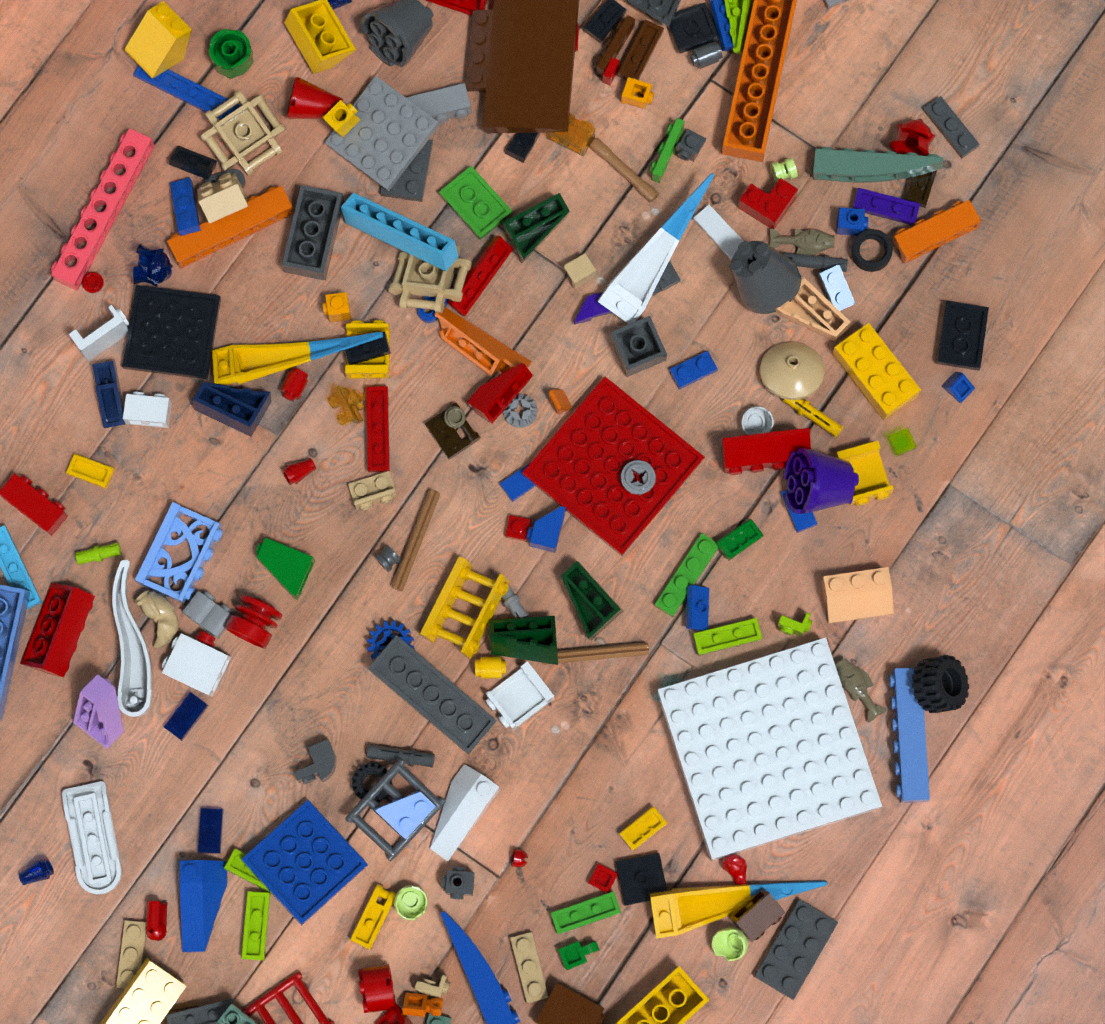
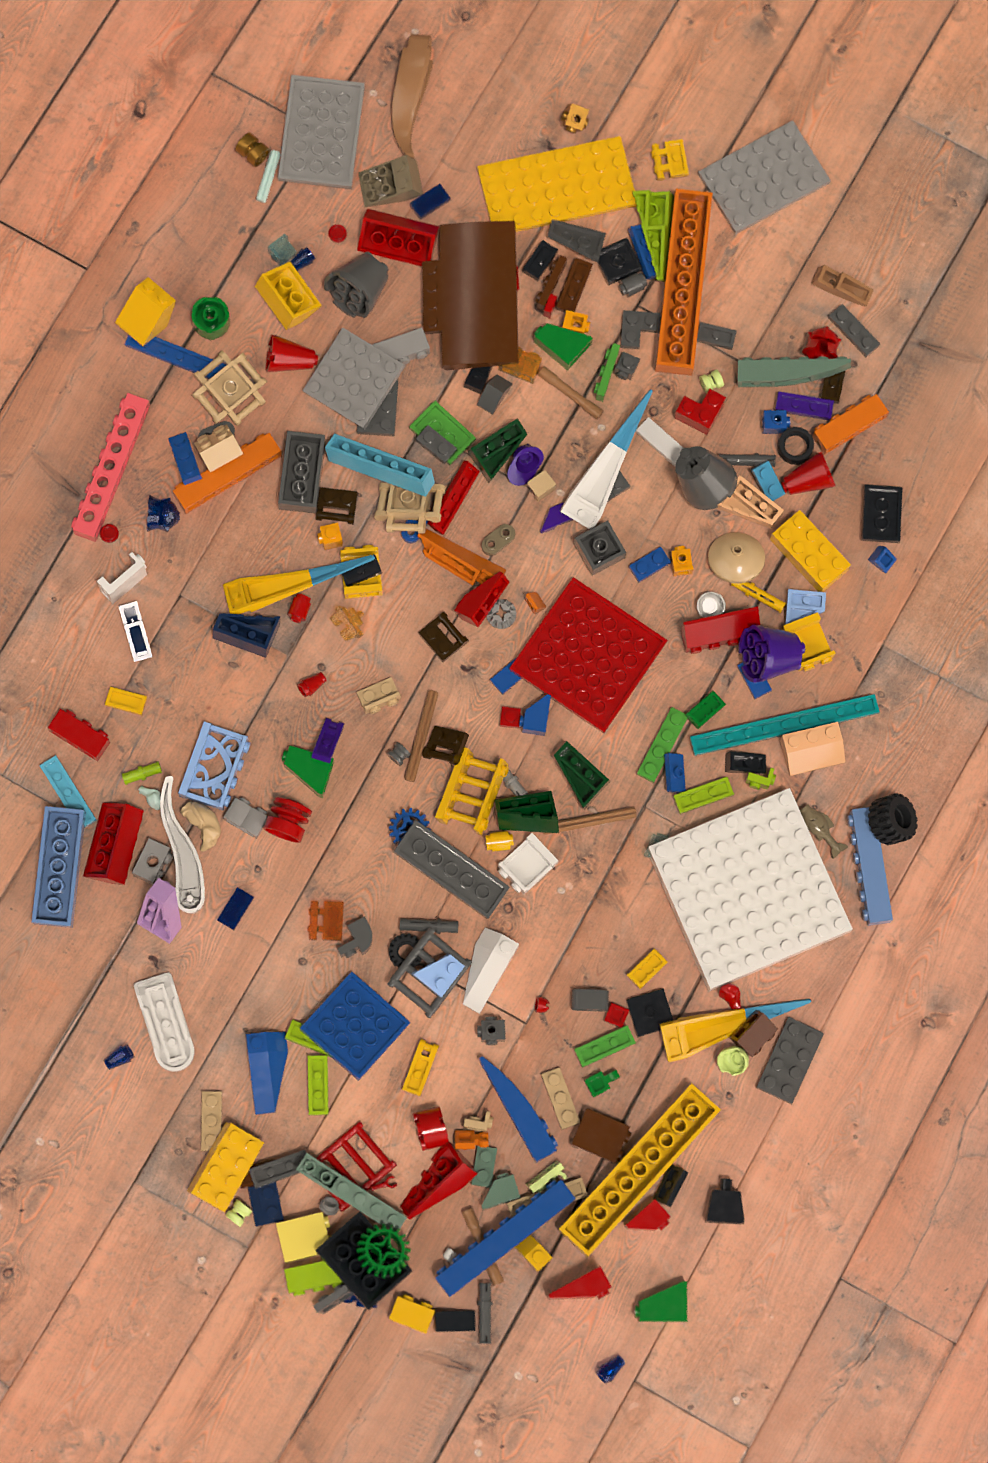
camera: 15 degrees left, 0 degrees up
(98, 642) = (152, 850): none -> light grey brick
(106, 581) = (152, 796): none -> light aqua animal
(147, 410) = (171, 642): white brick -> none
(156, 920) = (229, 1088): red piece -> none
(171, 332) = (185, 571): black plate -> none
(192, 162) = (187, 418): black plate -> none
(195, 664) = (239, 862): white panel -> none
(205, 638) = (245, 840): red plate -> none
(210, 831) = (268, 1007): clear blue plate -> none
(292, 741) = (332, 922): none -> clear orange plate
(308, 536) = (327, 740): none -> dark purple plate
(334, 115) = (320, 375): yellow brick -> none
(349, 267) = (338, 500): none -> dark brown plate
(378, 429) = (377, 641): red plate -> none
(410, 902) = (451, 1051): yellowish green hair -> none
(442, 546) = (446, 739): none -> dark brown plate
(454, 417) = (445, 624): dark tan plate -> none
(466, 214) = (436, 444): none -> dark grey plate
(526, 327) = (498, 539): none -> dark tan plate
(538, 164) = (494, 394): none -> dark grey slope
(563, 246) = (524, 464): none -> dark purple piece
(574, 858) = (590, 1000): none -> dark grey beam
(620, 115) = (562, 344): none -> green slope
(638, 467) = (611, 654): light grey gear -> none
(705, 98) = (636, 322): none -> dark grey plate
(726, 375) = (681, 567): none -> light orange brick
(779, 604) = (745, 762): none -> black slope
(794, 120) = (716, 335): none -> dark grey plate
(808, 241) = (739, 442): dark tan animal -> none
(827, 564) = (783, 725): none -> teal plate
(863, 429) = (803, 603): none -> light blue wing
(883, 286) = (809, 476): none -> red cone
(902, 442) = (838, 612): clear neon green plate -> none
(942, 75) = (842, 285): none -> medium nougat slope

